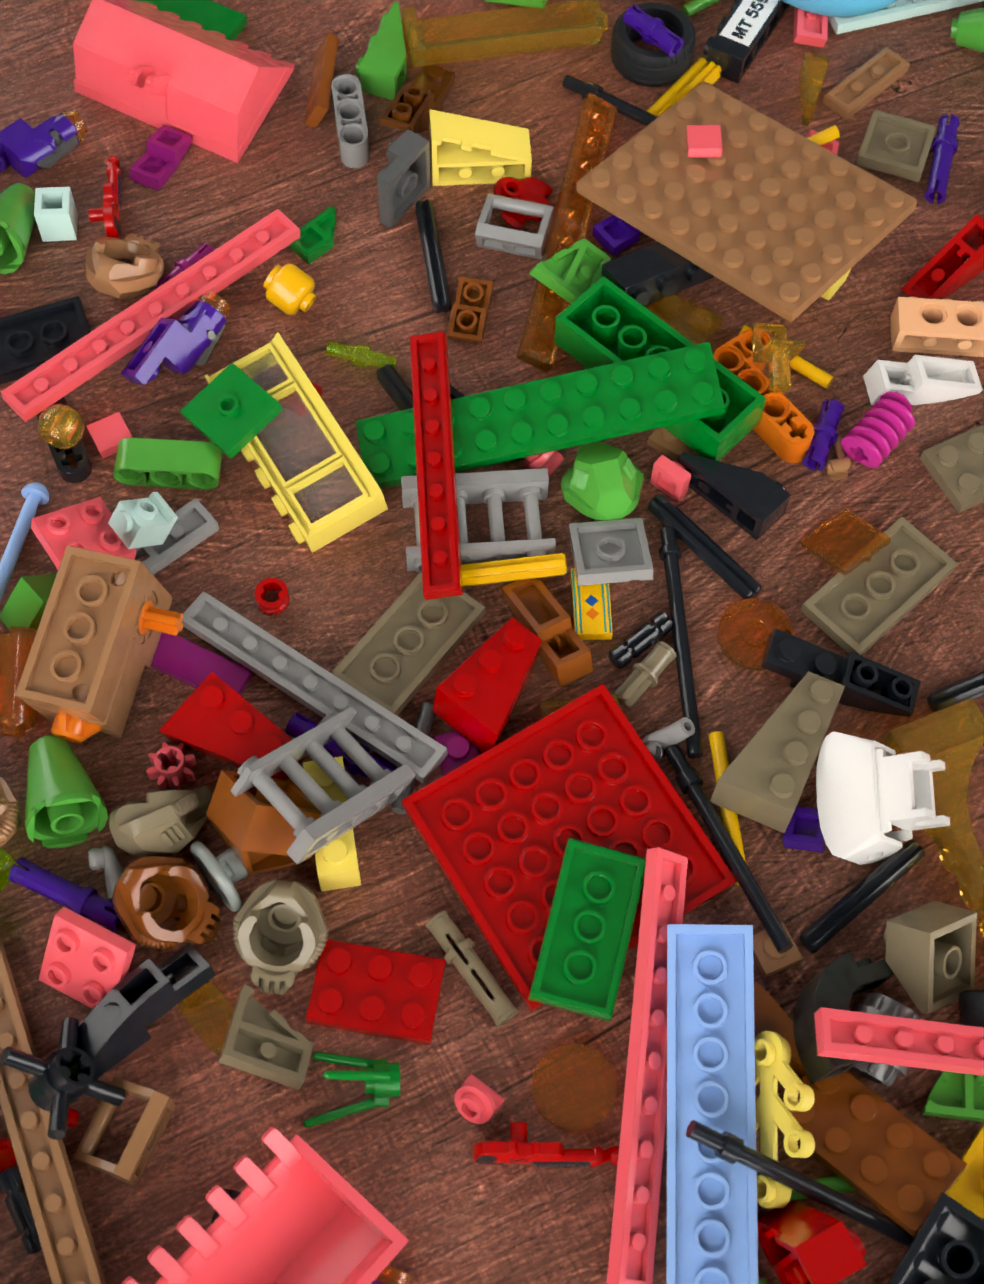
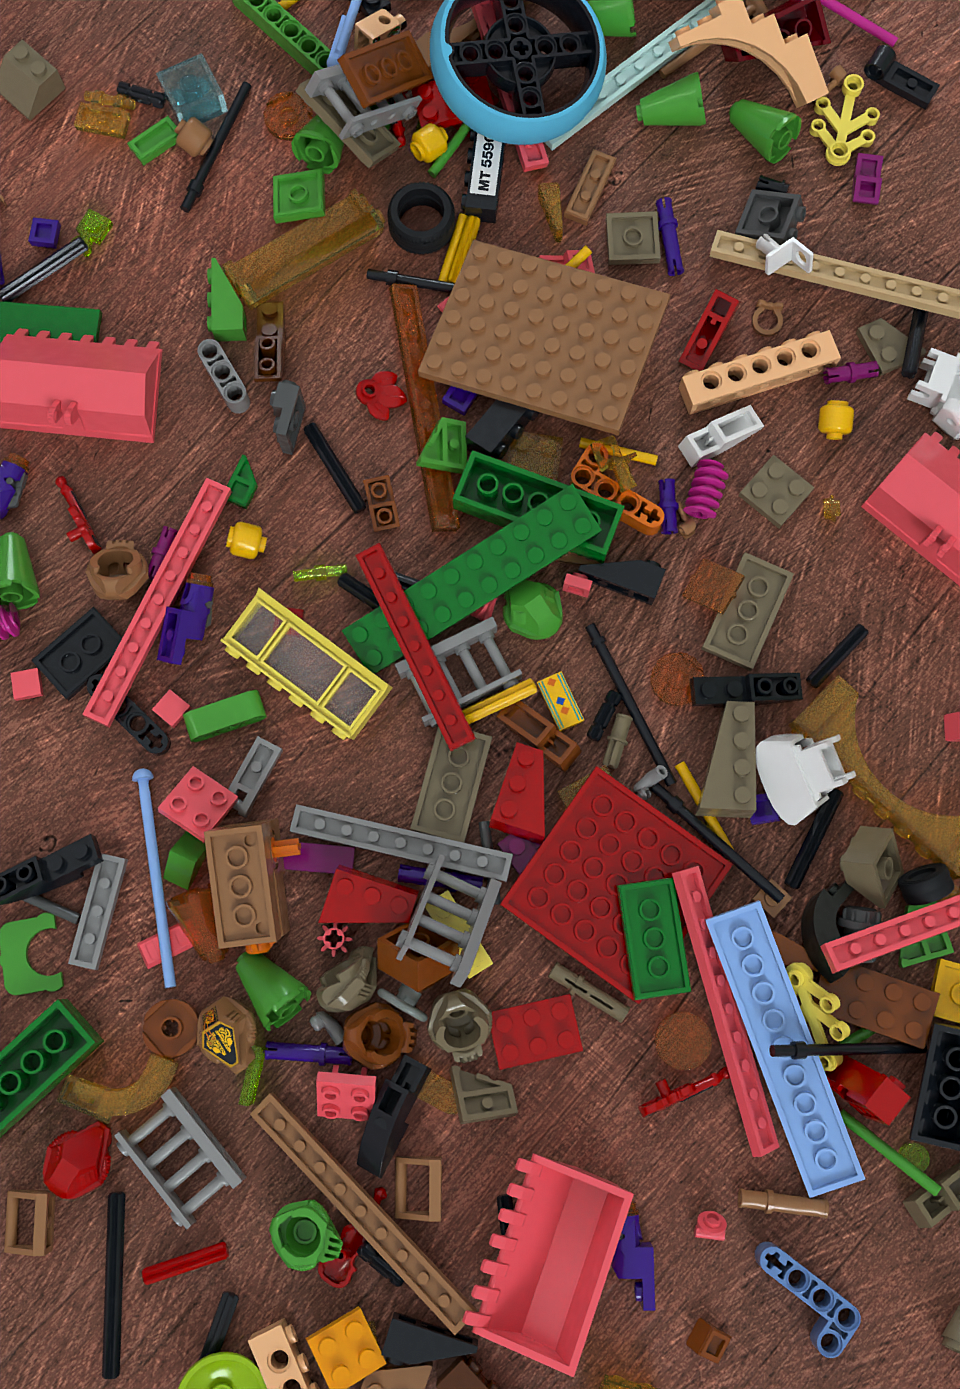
camera: 20 degrees left, 15 degrees up
(56, 214) = (45, 548): light aqua brick -> none
(61, 426) = (138, 722): clear yellow piece -> none
(61, 1078) = (371, 1180): black bar -> none
(143, 521) = (234, 775): light aqua brick -> none
(163, 156) = (95, 463): magenta slope -> none
(231, 410) = (254, 662): green plate -> none
(276, 606) = (334, 788): red bush -> none
(321, 80) = (186, 348): dark orange tile -> none
(379, 1076) = (563, 1089): green plant -> none
(476, 150) = (332, 368): light yellow wedge -> none
(477, 1101) = (628, 1075): coral plate -> none
(509, 239) = (384, 435): light grey tile -> none
(610, 551) = (560, 661): light grey hinge -> none
(653, 30) = (421, 214): dark purple pin -> none
(704, 141) = (498, 302): coral tile -> none
(704, 547) = (619, 627): black axle -> none

